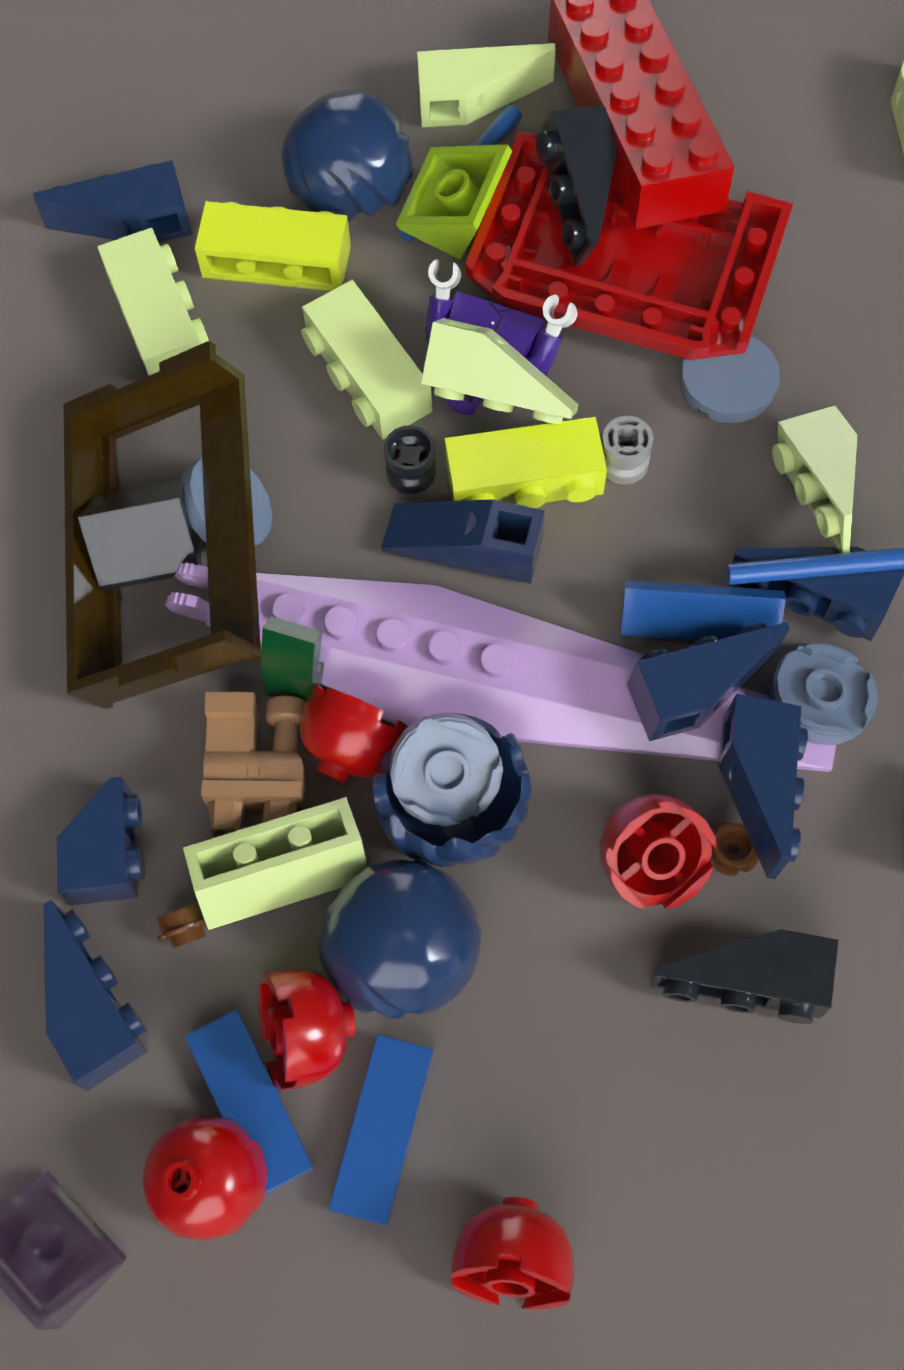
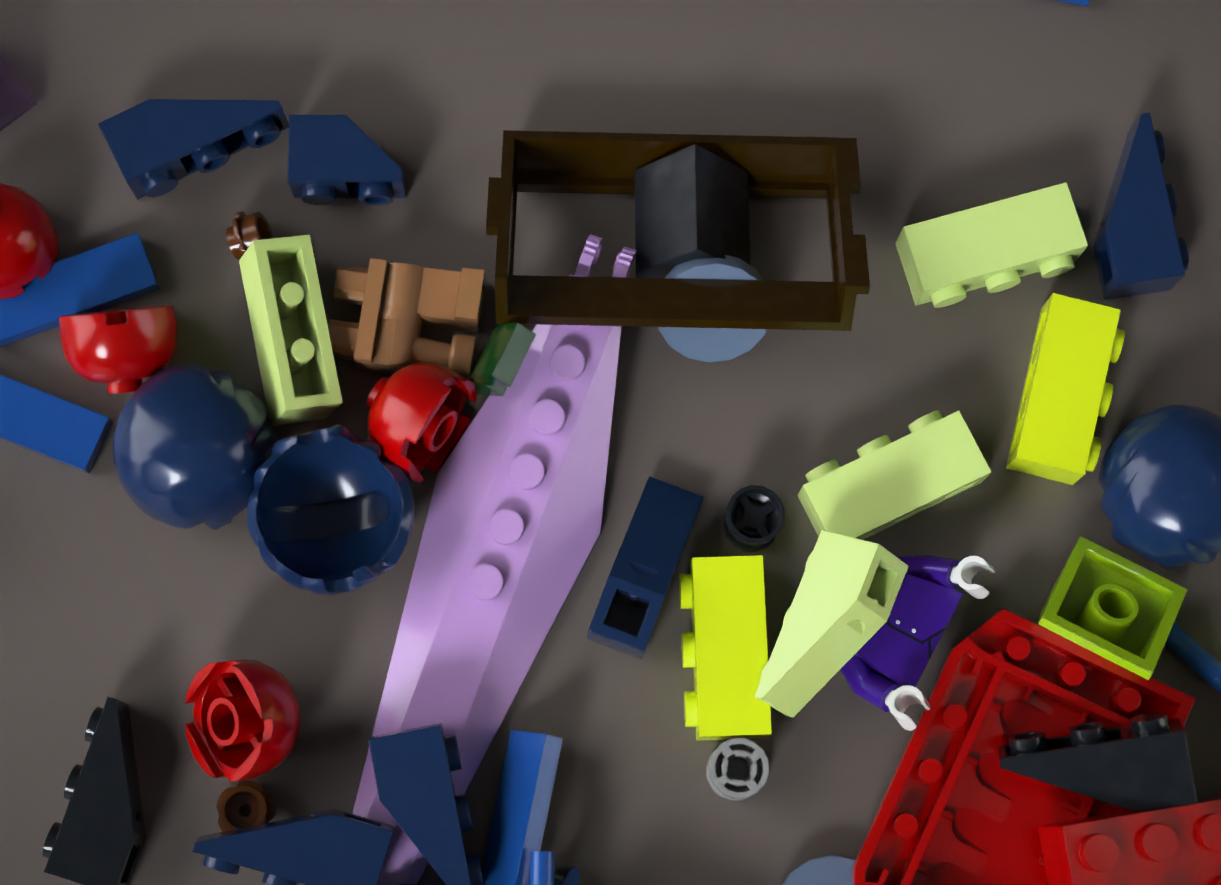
camera: 90 degrees right, 10 degrees up
(445, 769) = (348, 504): tile -> none

